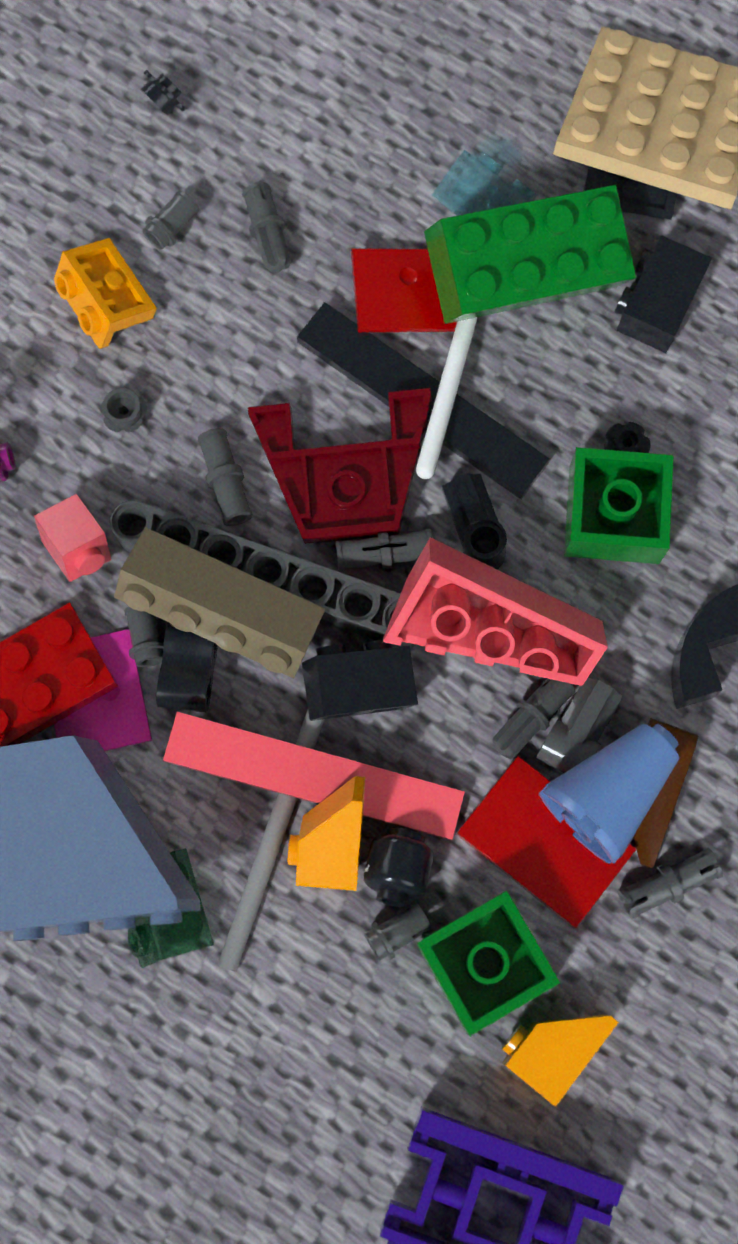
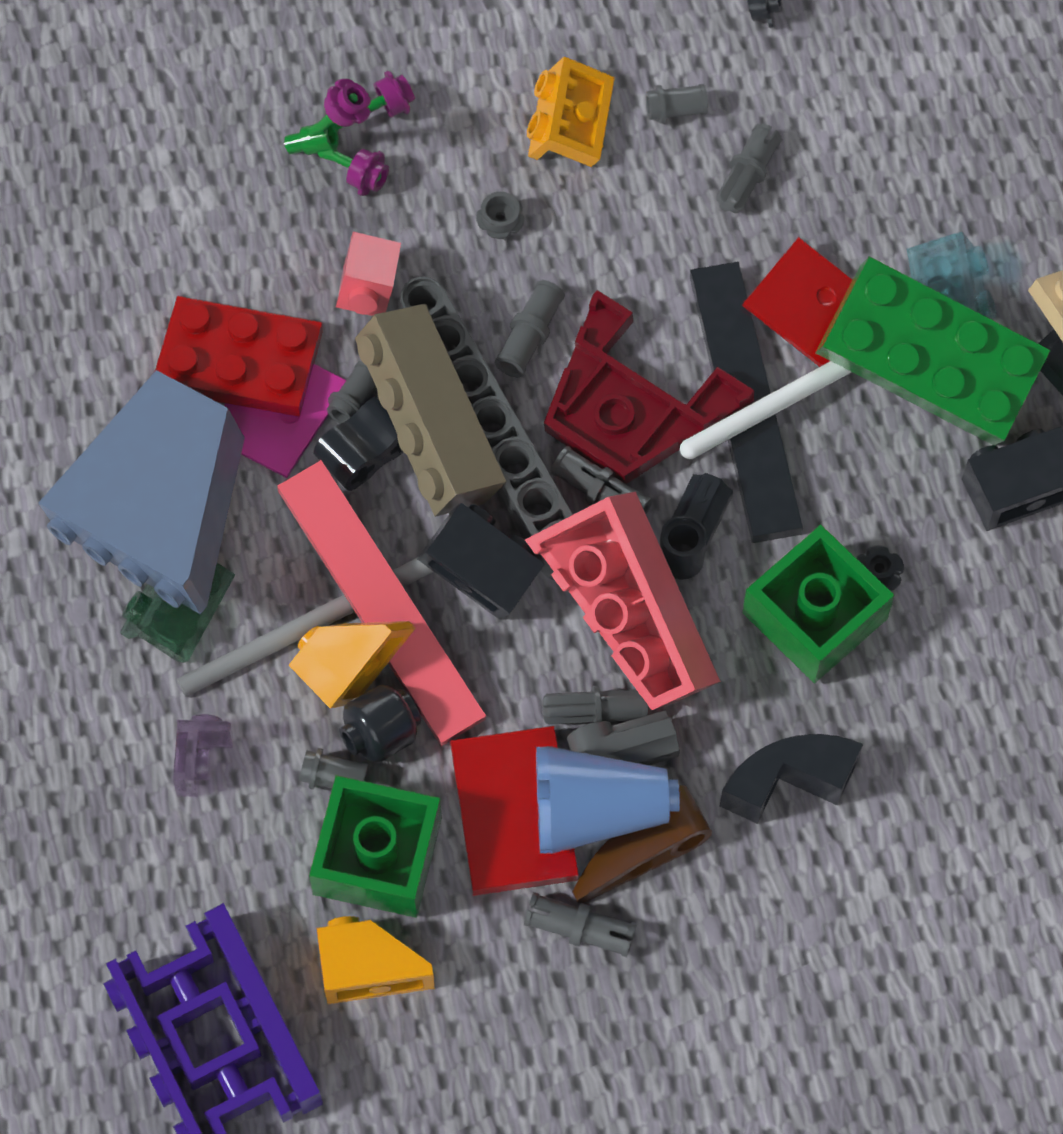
camera: 40 degrees right, 10 degrees down
(289, 1018) = (190, 759): none -> clear purple bracket

